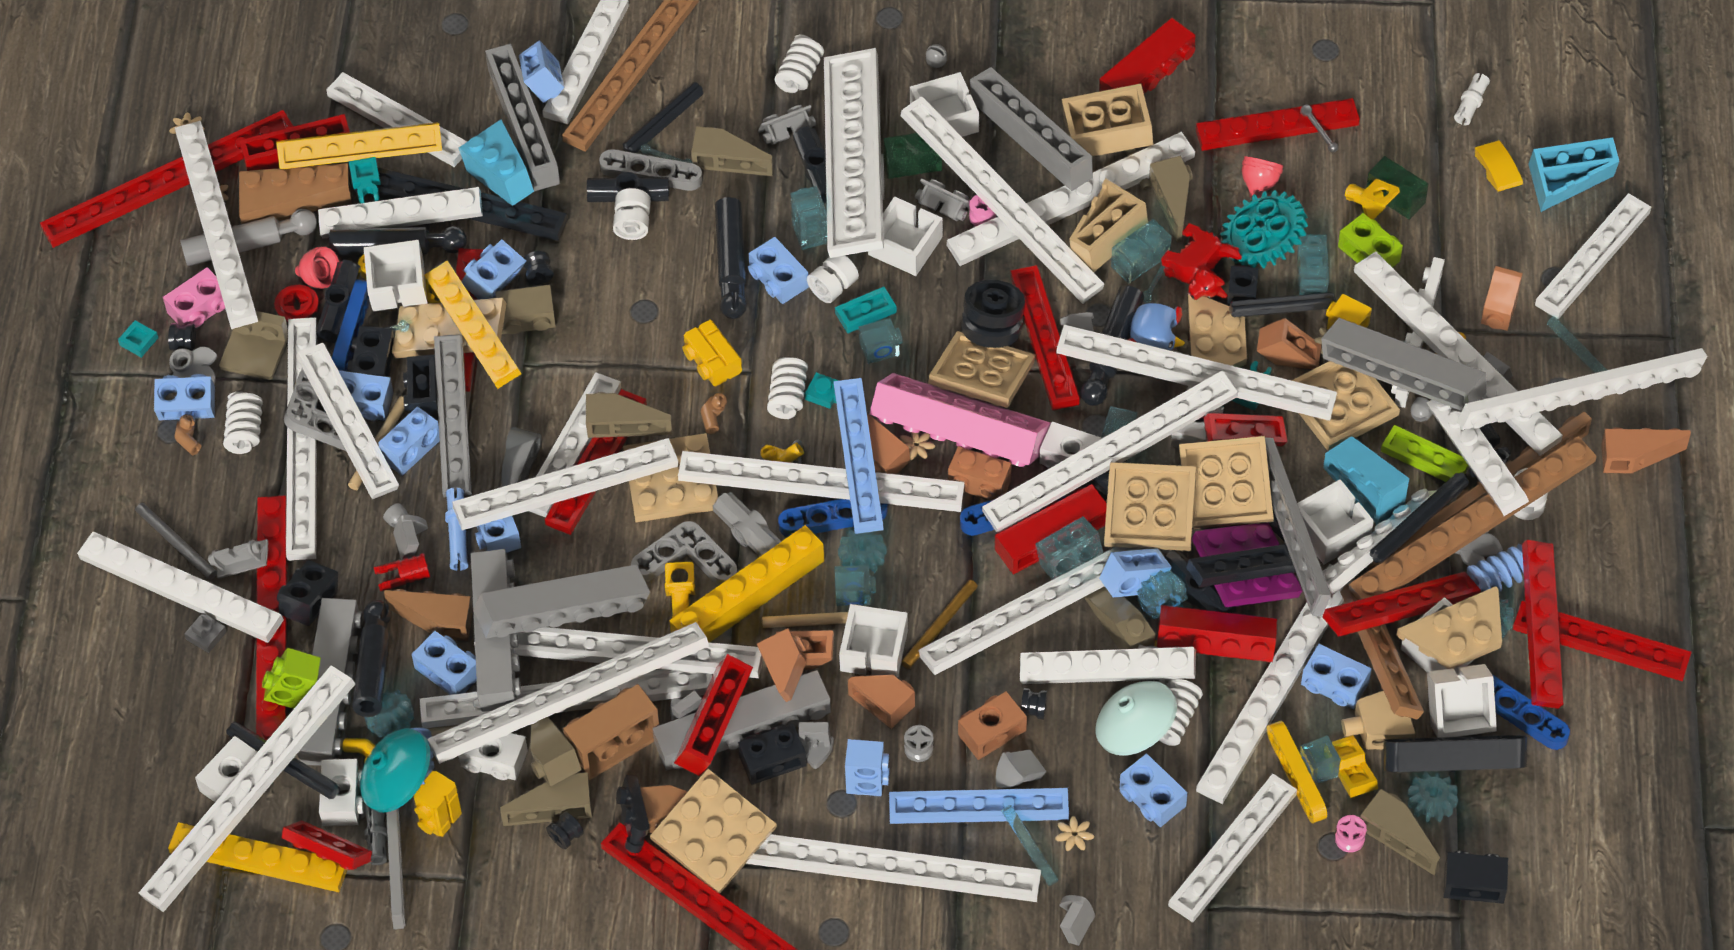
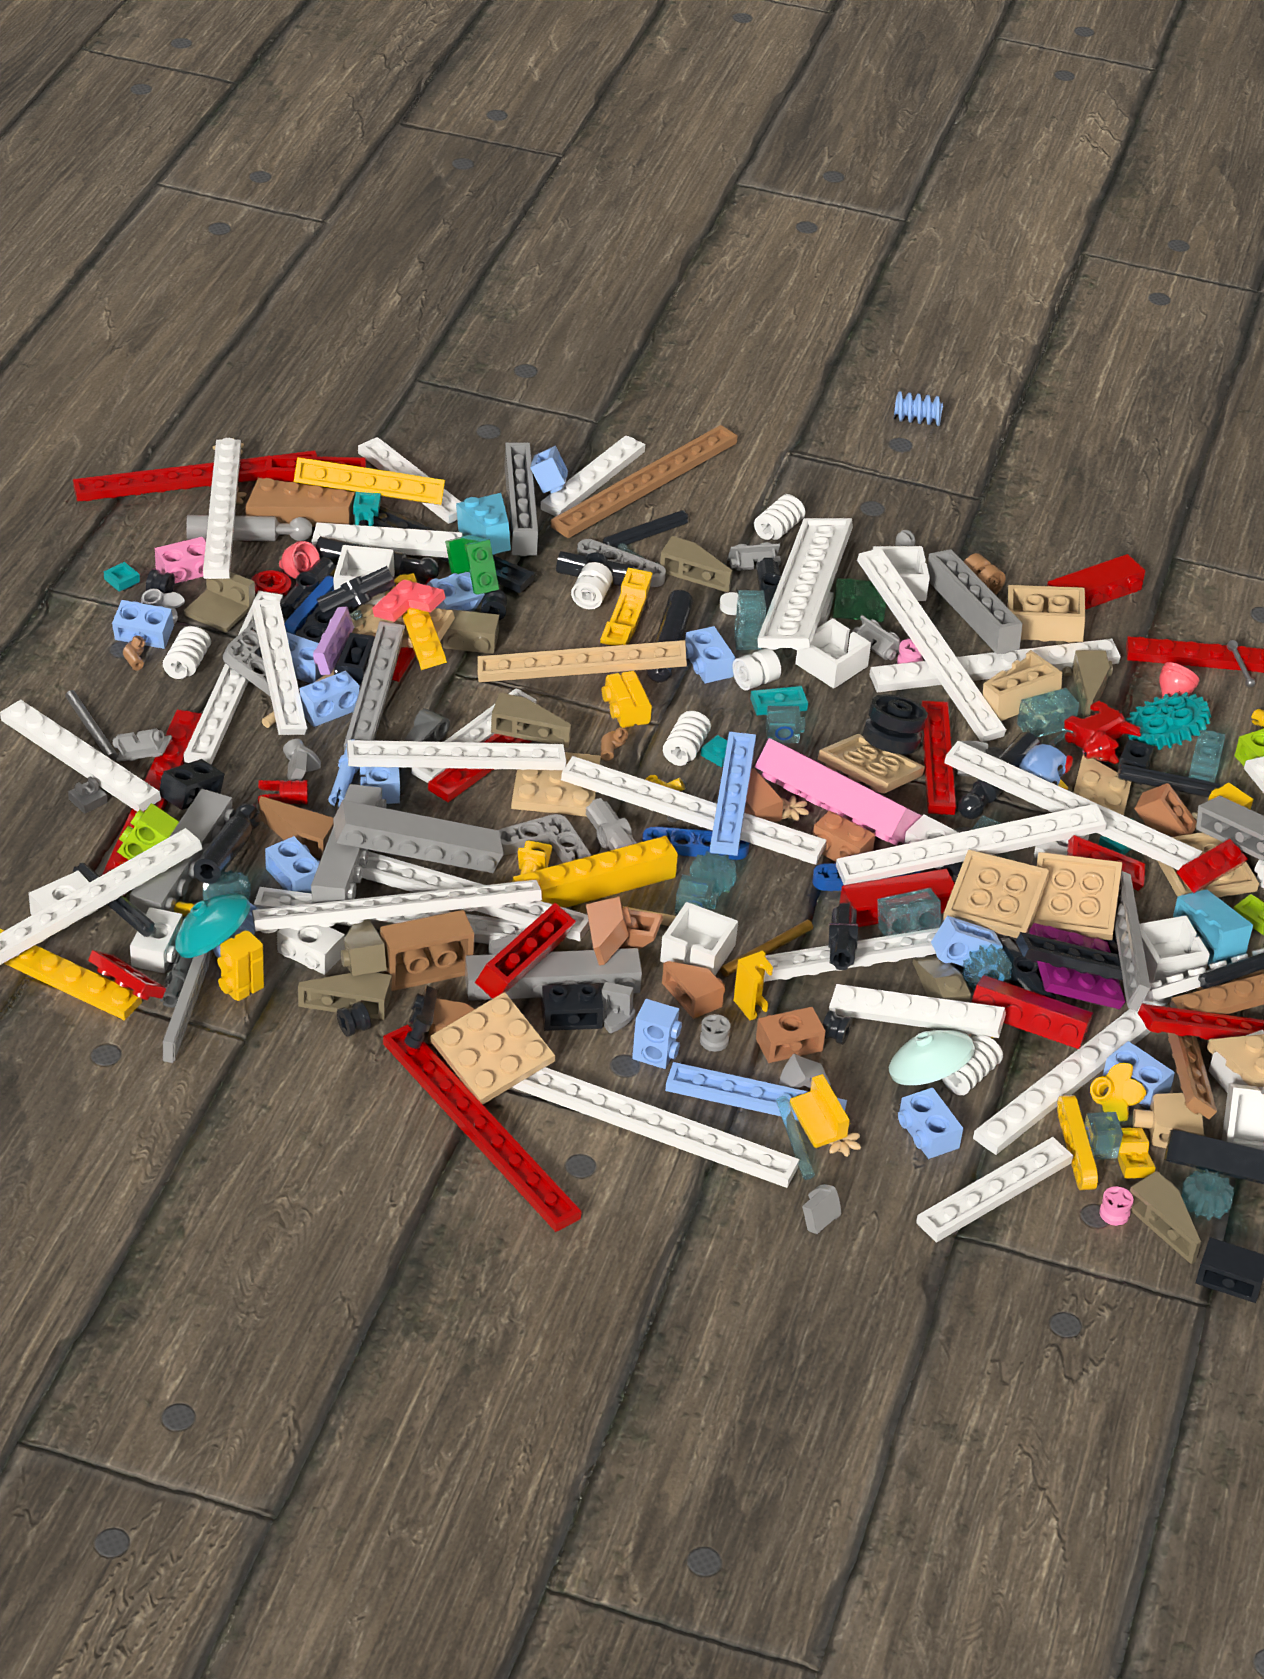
camera: 10 degrees right, 15 degrees down
(393, 372) = (333, 641): none -> lavender plate
(398, 307) = (356, 591): none -> black piece
(456, 298) = (407, 595): none -> coral plate
(503, 221) = (476, 557): none -> green panel
(653, 321) = (582, 661): none -> tan plate
(677, 234) = (628, 608): none -> yellow slope
(779, 192) = (728, 603): none -> white tile
(938, 680) = (750, 983): none -> yellow hinge
(1013, 597) = (843, 936): none -> black piece
(1032, 86) = (987, 573): none -> medium nougat wheel
(1047, 814) = (820, 1113): none -> yellow panel
(1325, 701) = (1121, 1092): none -> yellow plate
(1350, 406) = (1212, 865): none -> red plate

